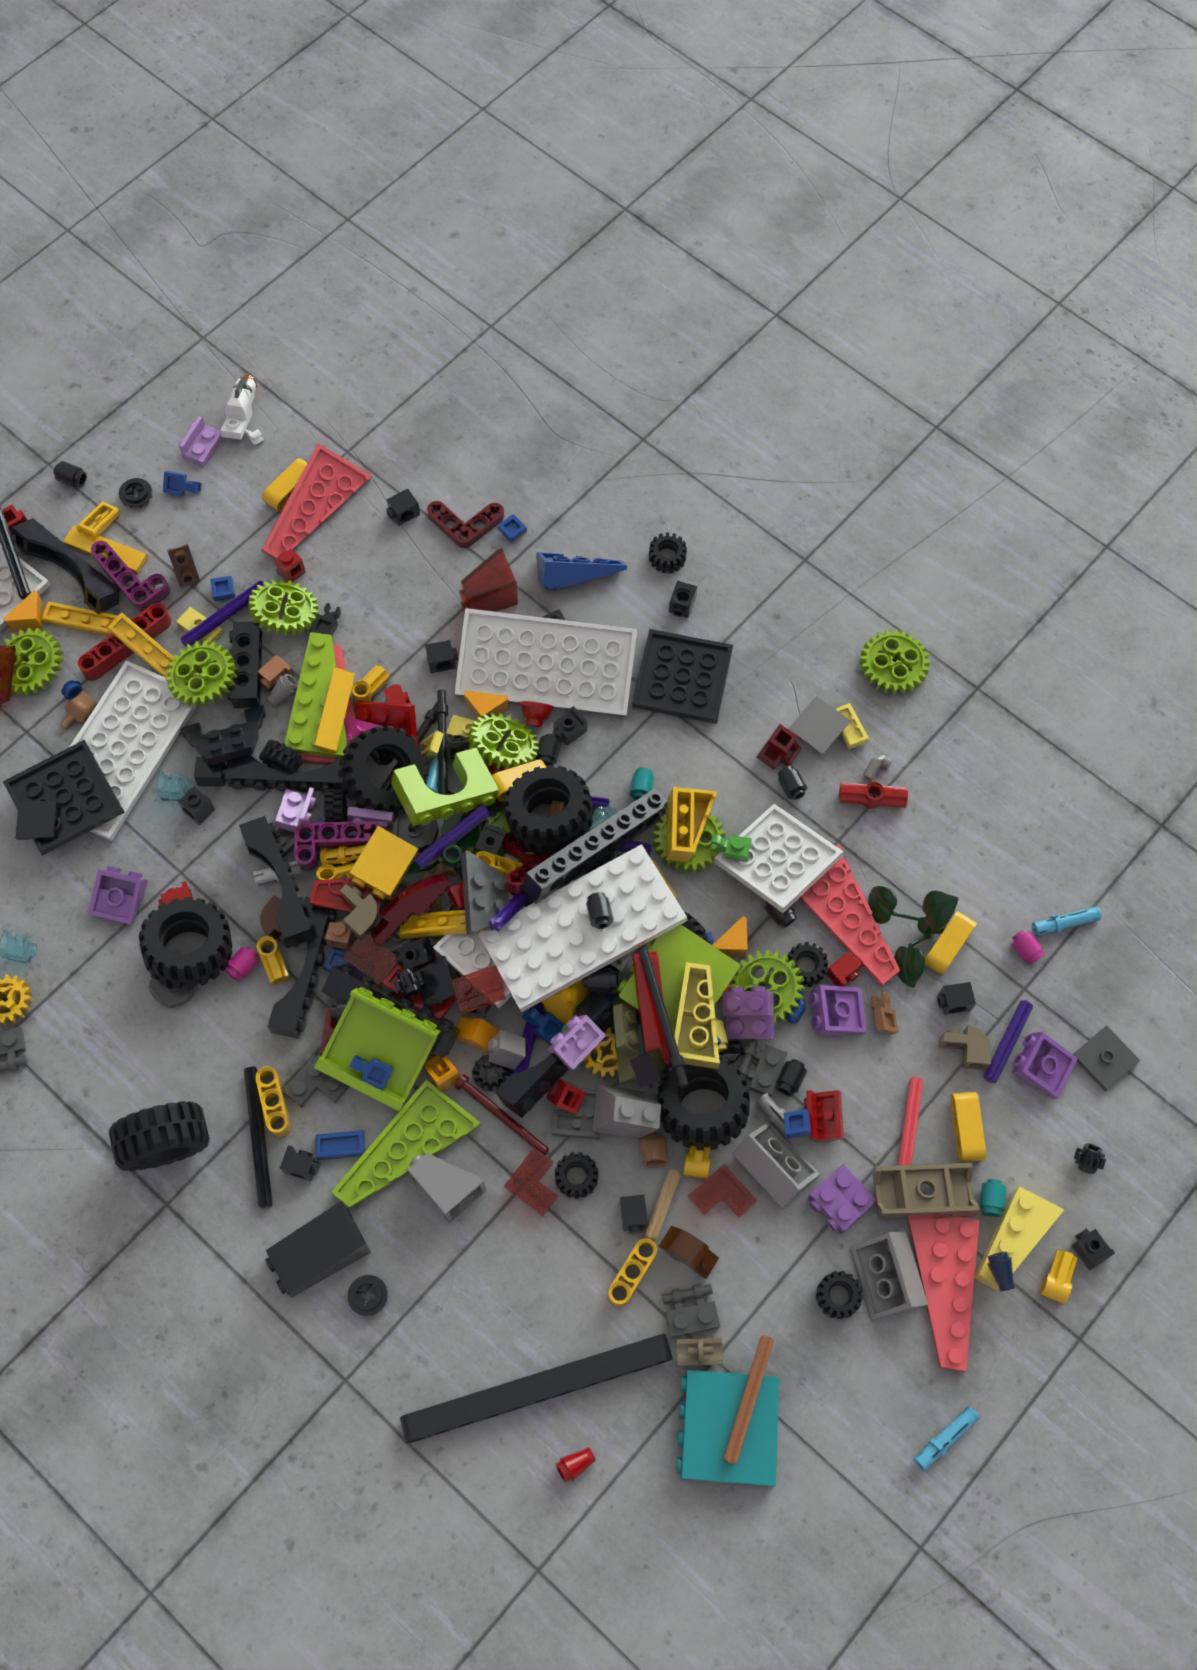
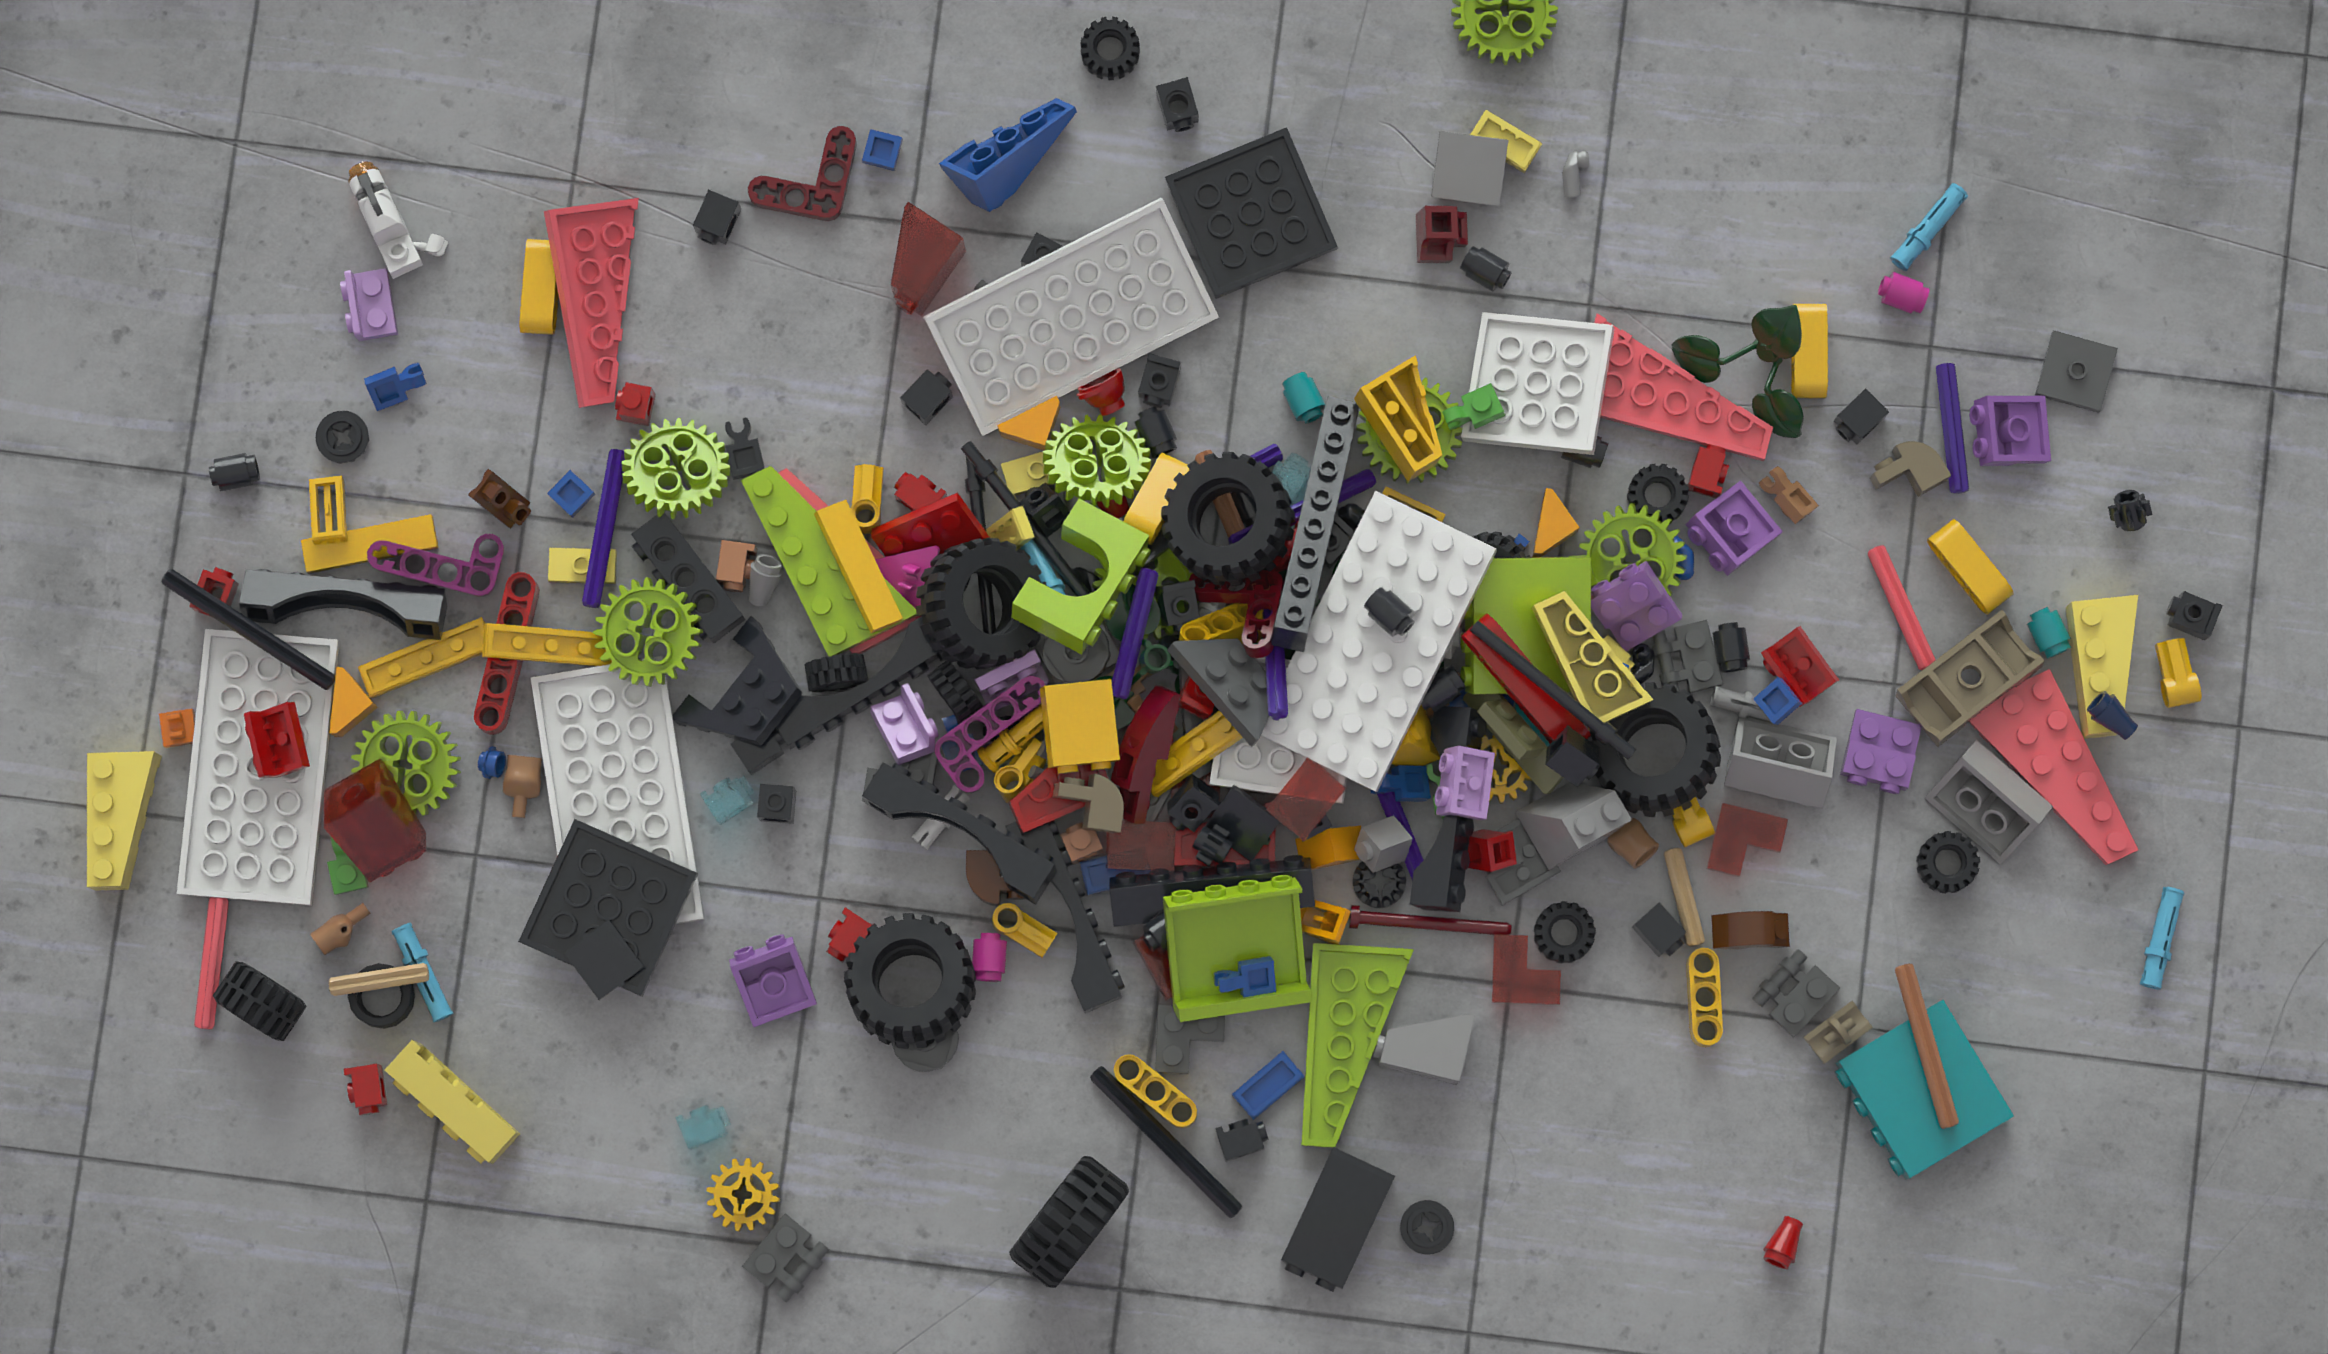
camera: 30 degrees left, 15 degrees up
(535, 1388) = (1686, 1194): black beam -> none
(859, 794) = (1614, 208): red piece -> none

